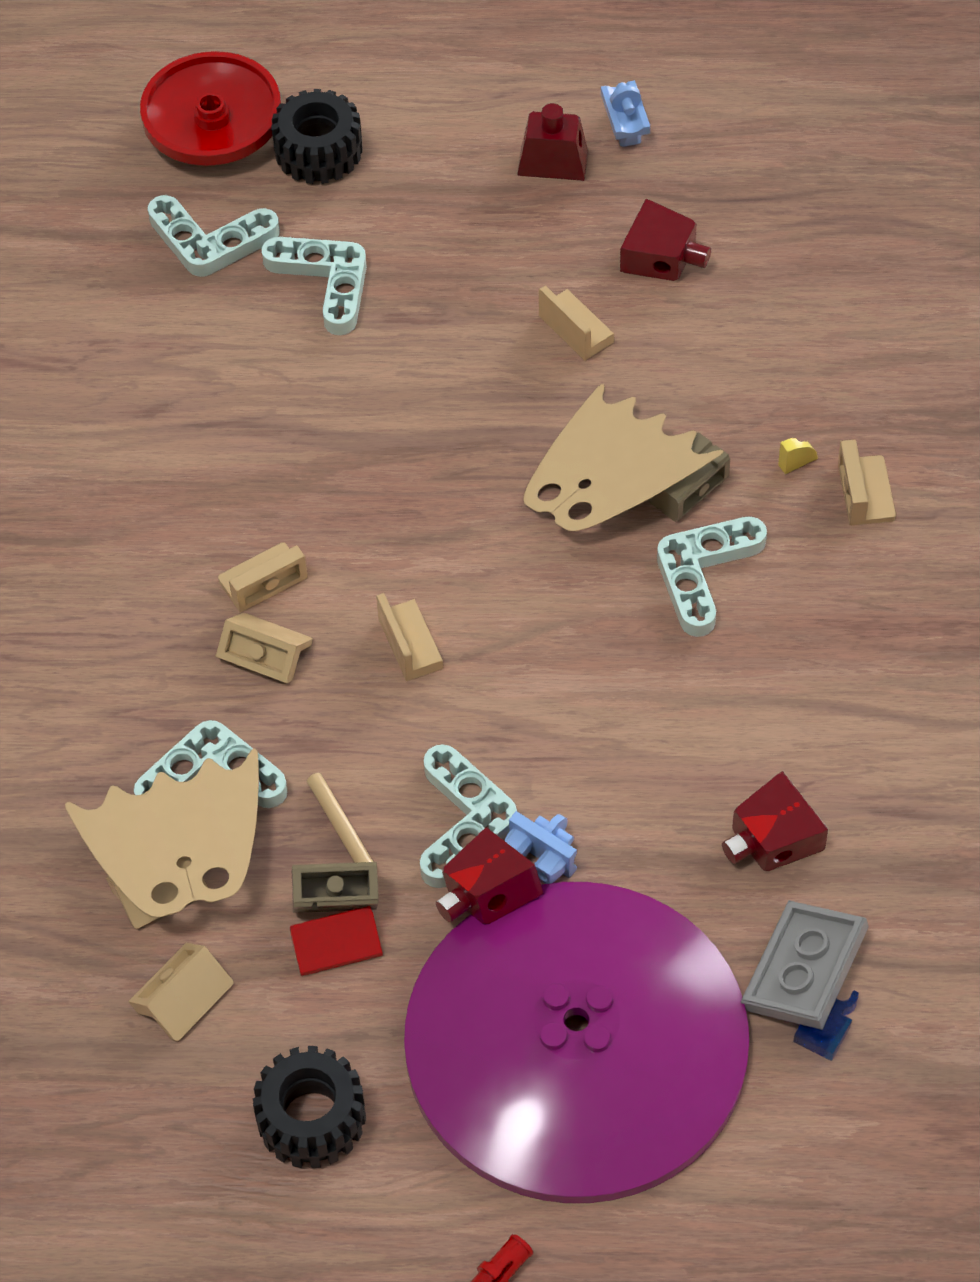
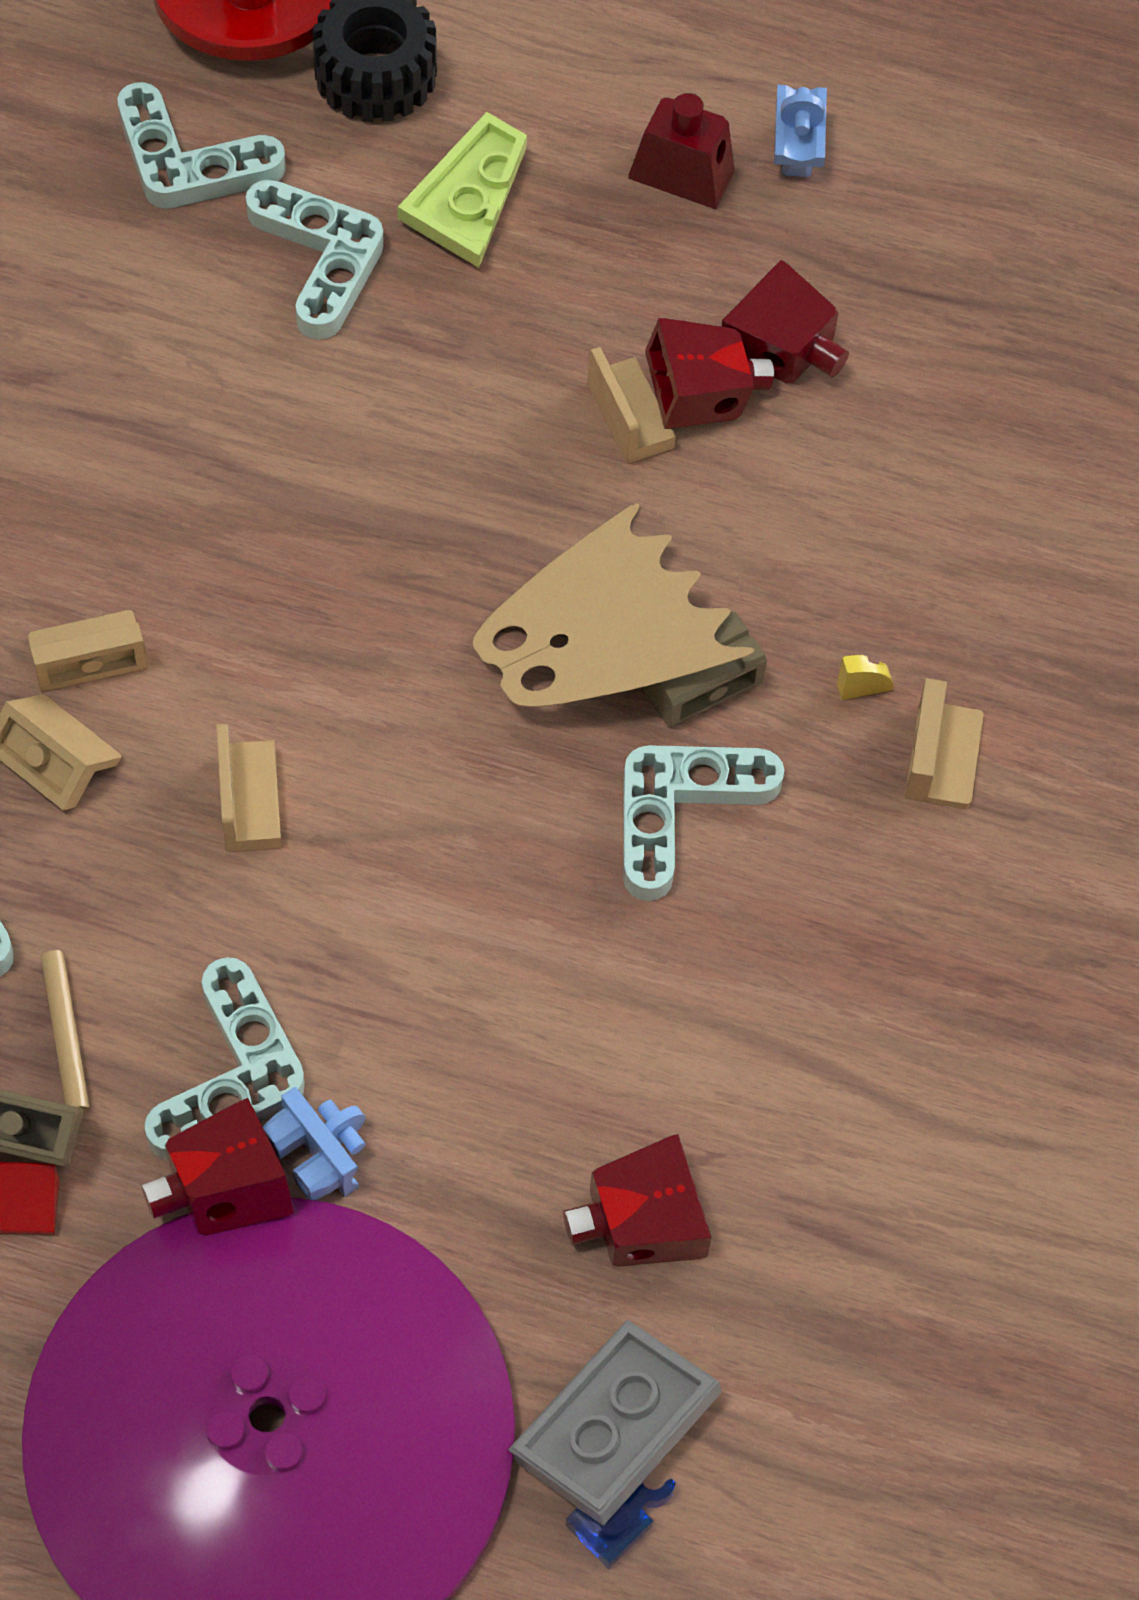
camera: 10 degrees right, 5 degrees up
(412, 209) = (467, 189): none -> yellowish green wing
(617, 286) = (702, 373): none -> dark red torso

